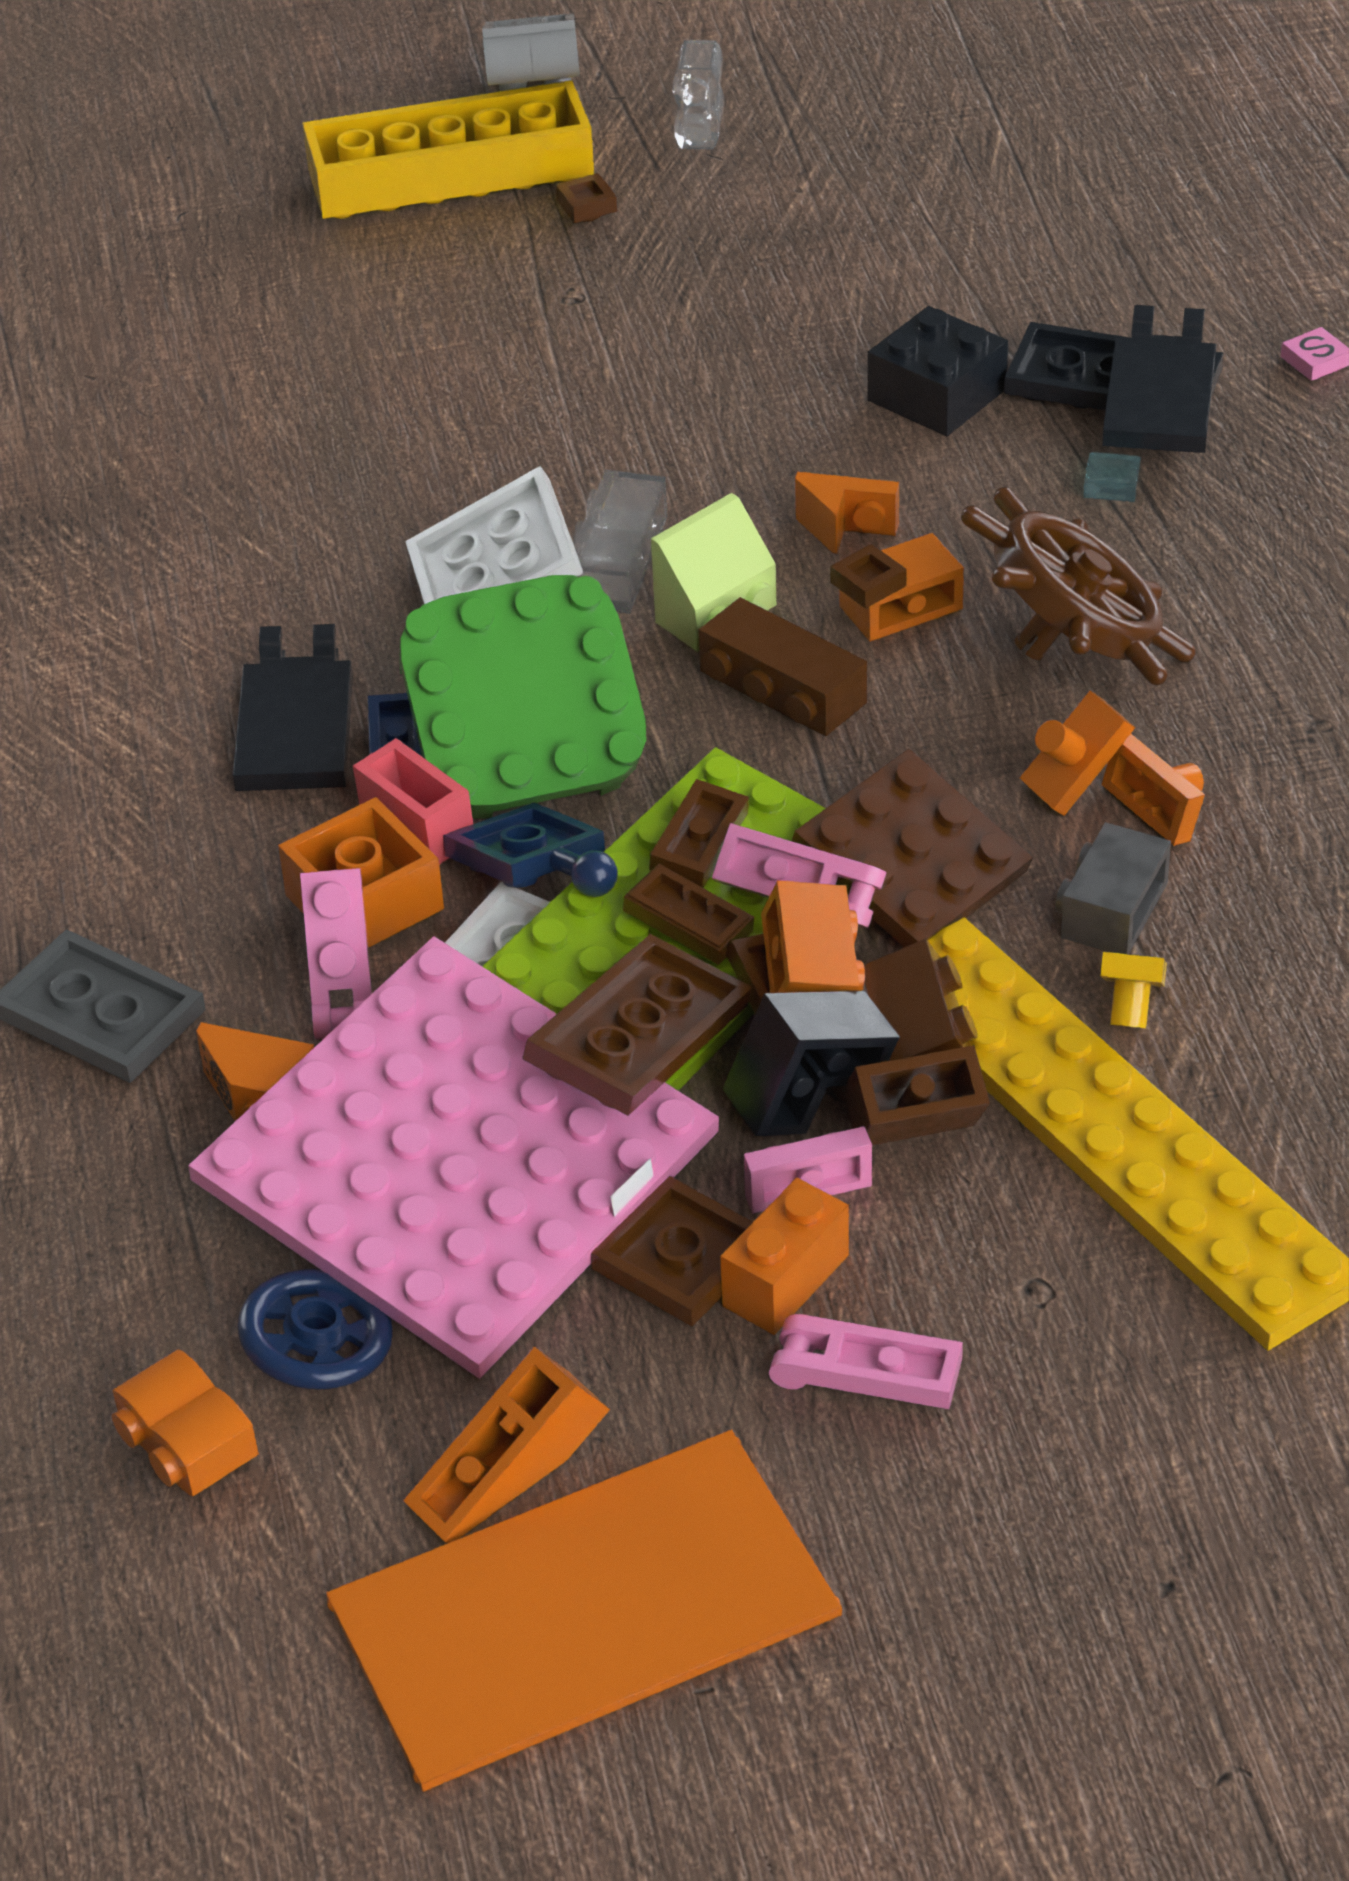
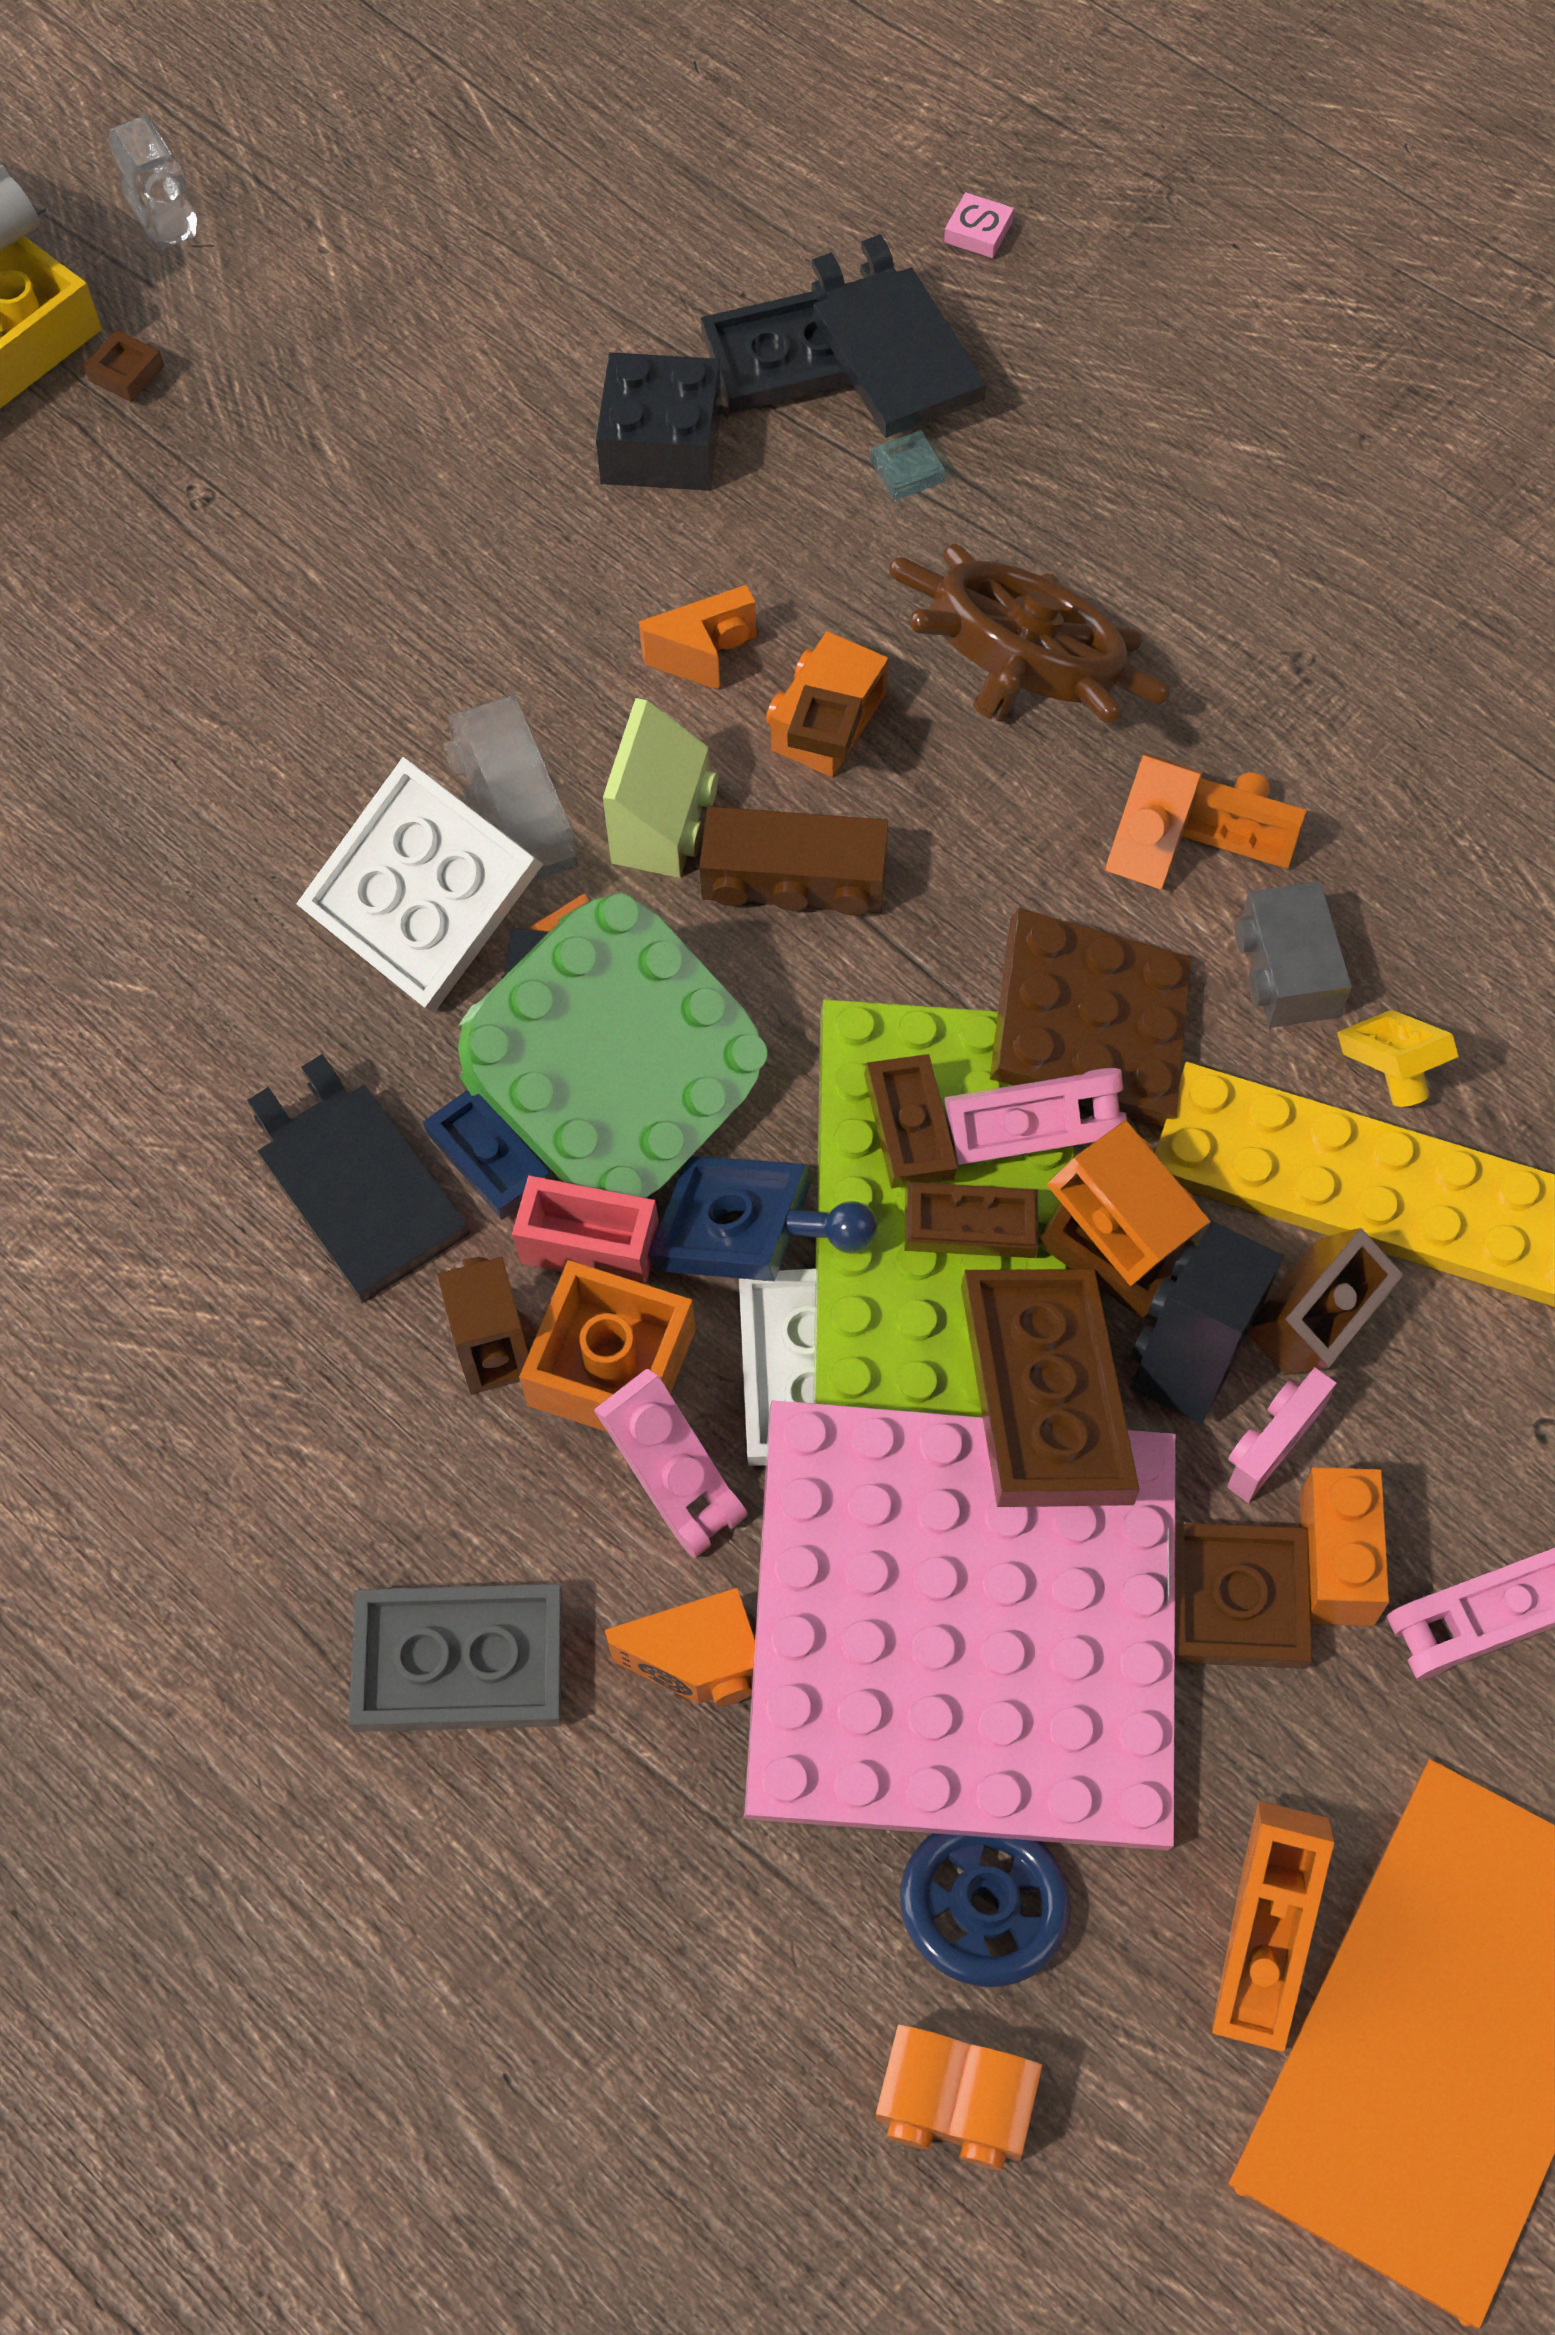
camera: 35 degrees left, 20 degrees up
(282, 802) = (484, 1322): none -> reddish brown brick
(919, 1000) = (1251, 1199): reddish brown piece -> none

